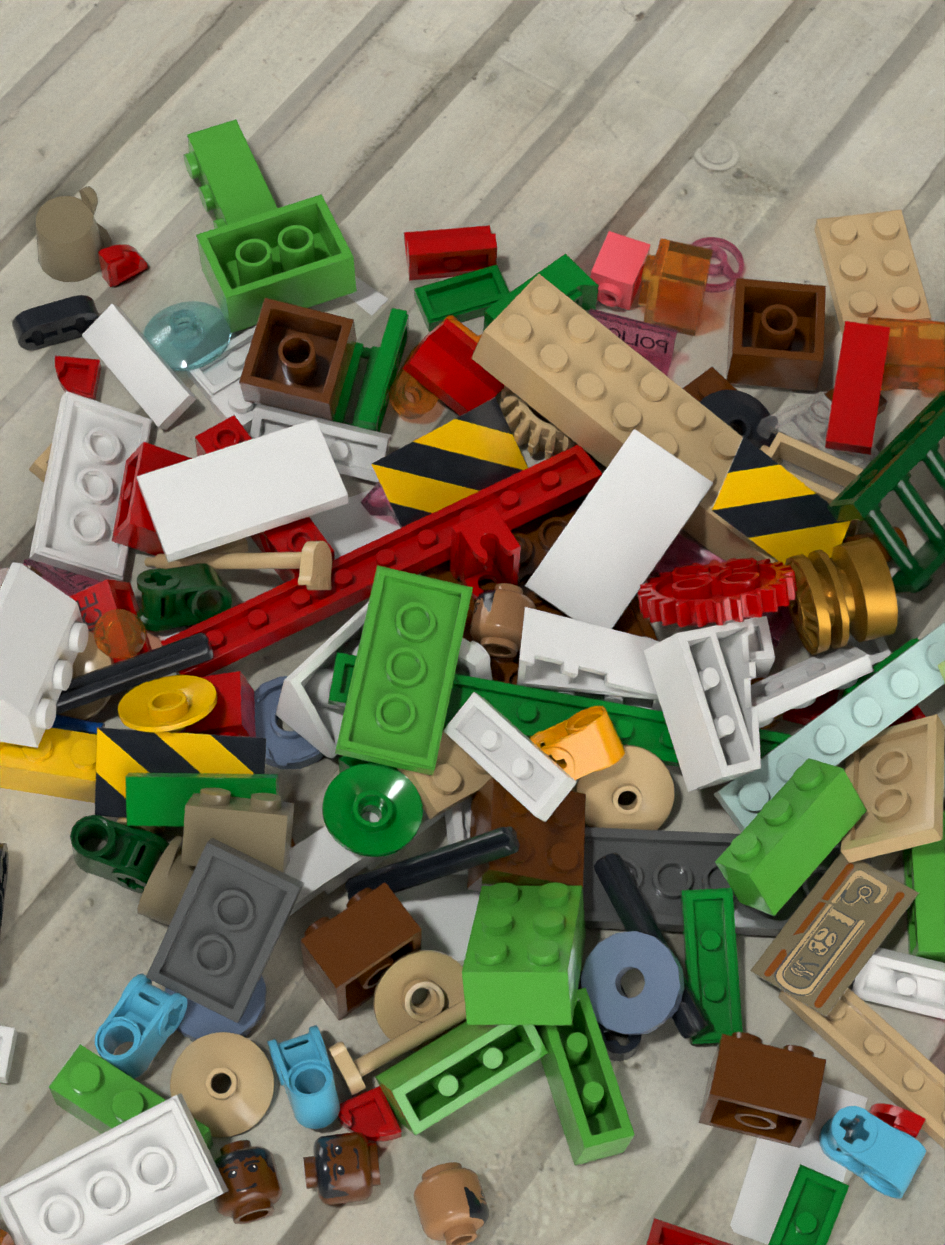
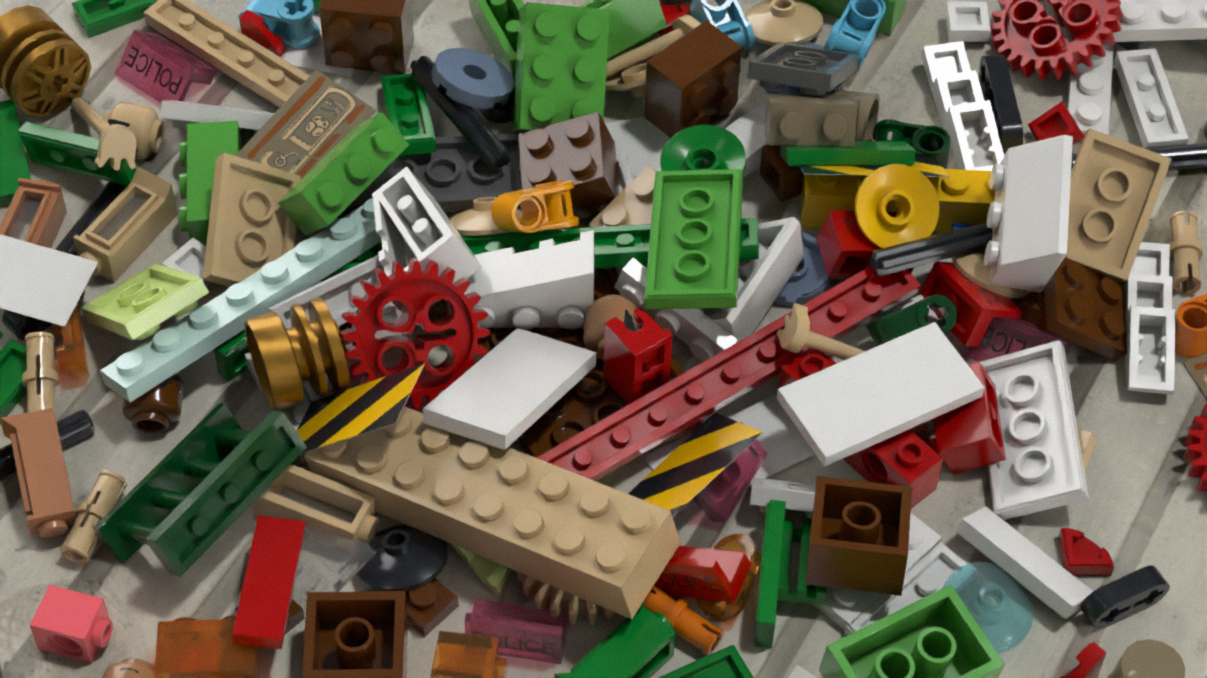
camera: 175 degrees right, 10 degrees down
(34, 910) = (962, 107): none -> white slope
(119, 634) = (957, 270): clear orange tile -> none
(439, 862) = (625, 120): black axle -> none
(510, 757) = (592, 174): white plate -> none

